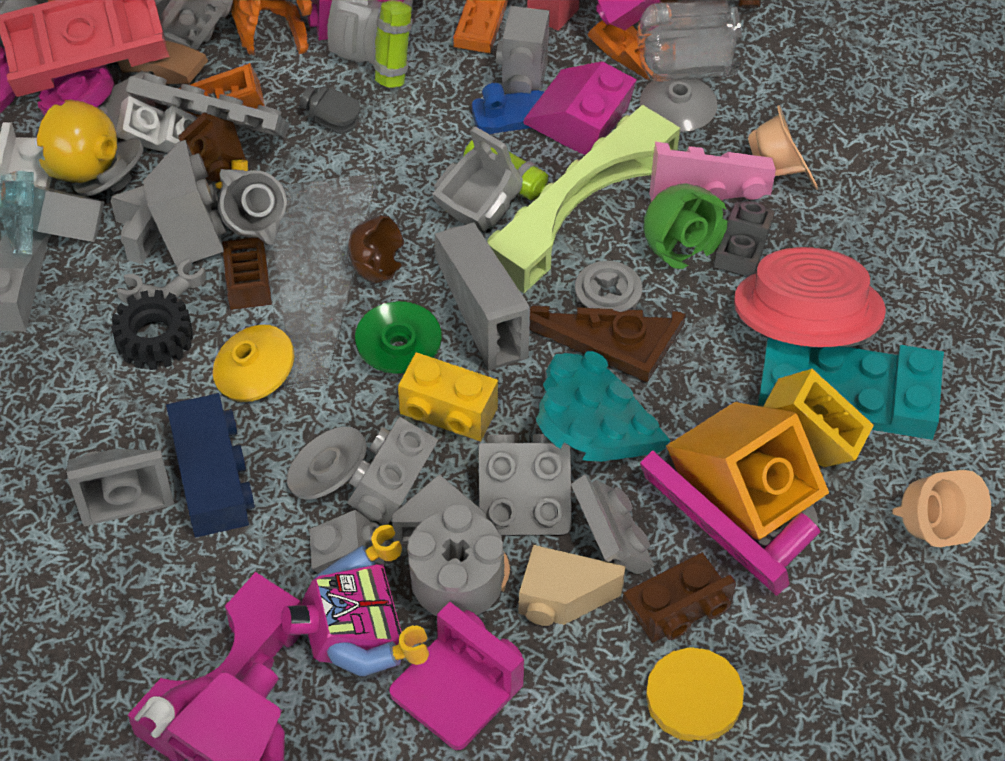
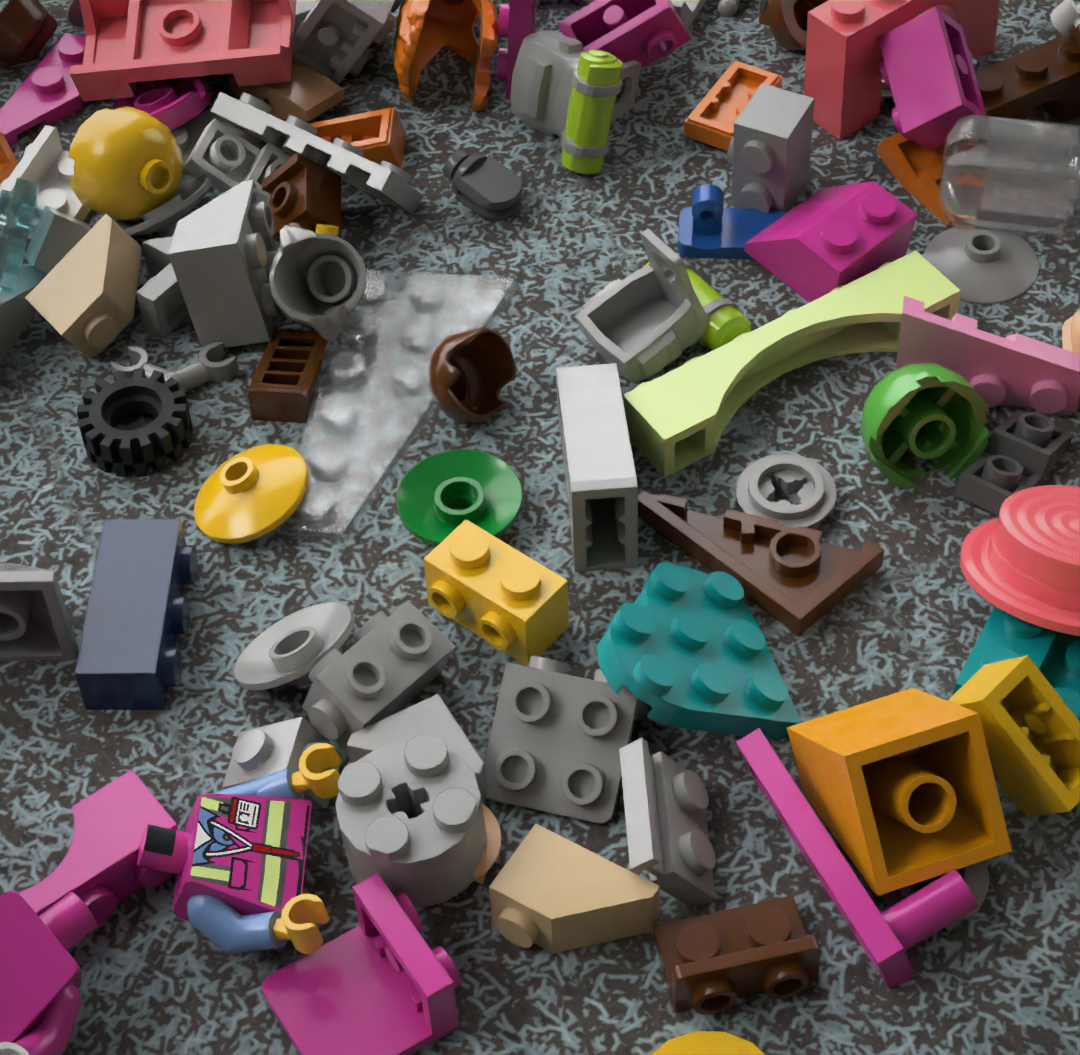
camera: 20 degrees right, 5 degrees down
(86, 239) = (92, 288): none -> tan slope

